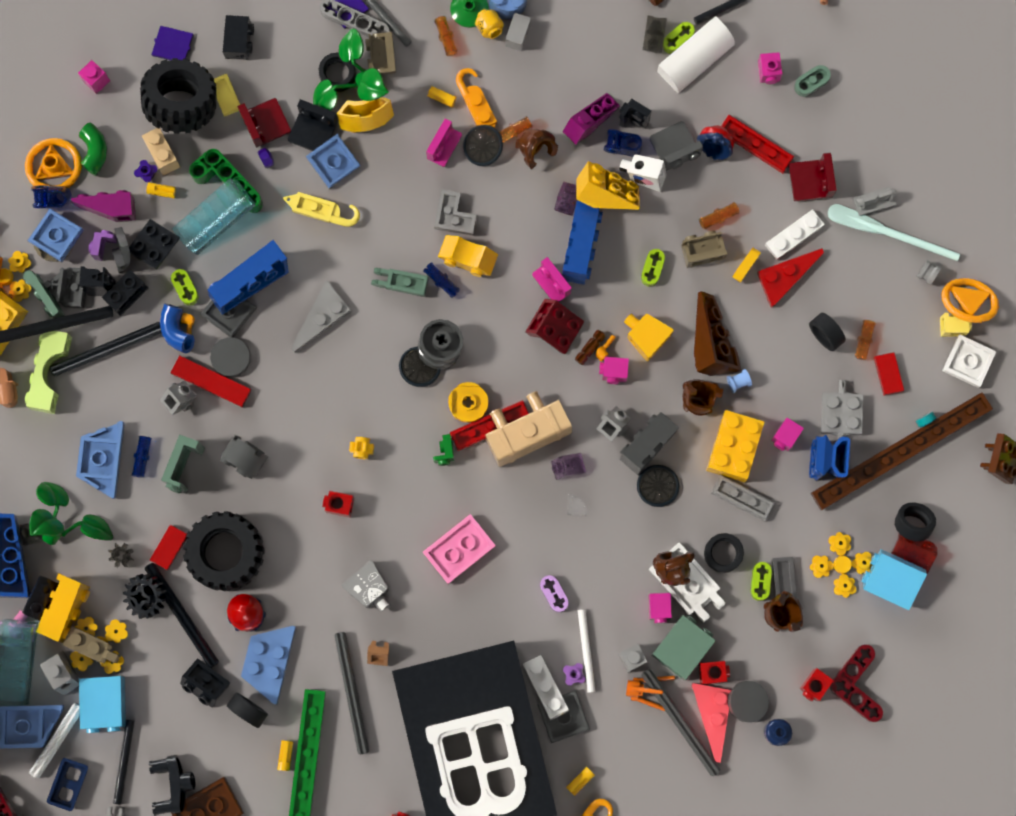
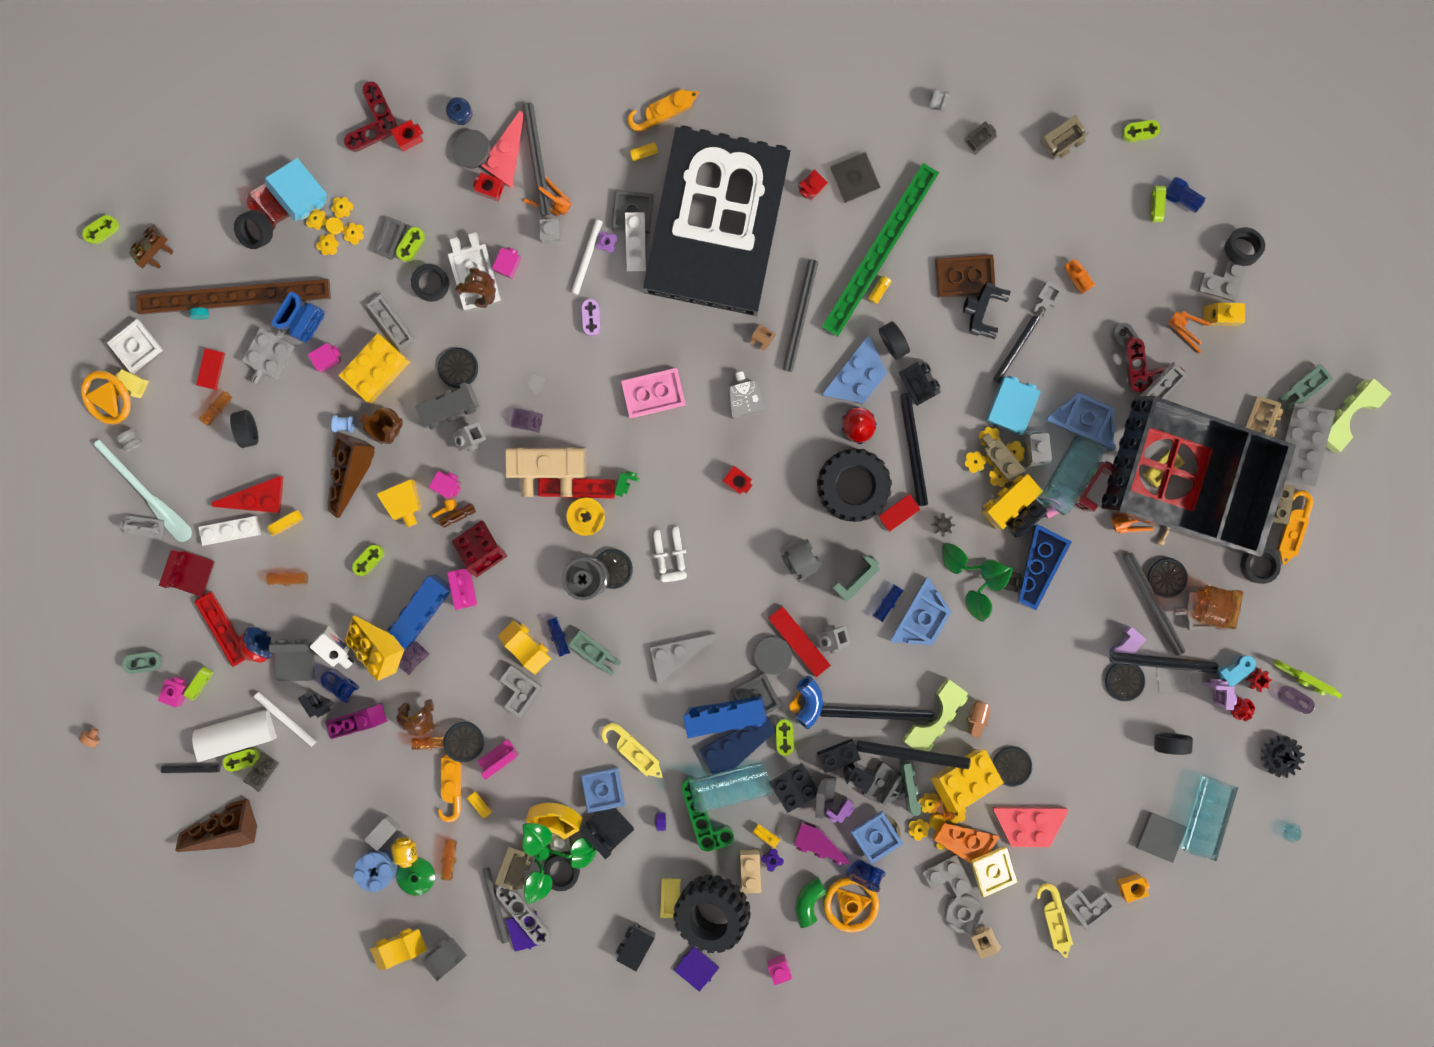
camera: 150 degrees left, 10 degrees up
(55, 741) = (1064, 393): white axle -> none
(61, 781) = (1074, 357): dark blue piece -> none
(146, 594) = (938, 479): black gear -> none
(228, 253) = (735, 747): none -> dark blue wing
(265, 121) = (646, 855): dark red bracket -> none
(349, 94) = (560, 844): none -> white plate
(361, 448) = (696, 519): yellow gear -> none
(380, 399) = (674, 576): none -> white piece
(657, 90) = (285, 719): none -> white bar
(684, 647) = (502, 219): sand green panel -> none
(703, 249) = (315, 554): dark tan hinge -> none
(751, 86) = (198, 683): none -> lime beam
(784, 612) = (404, 206): reddish brown helmet -> none

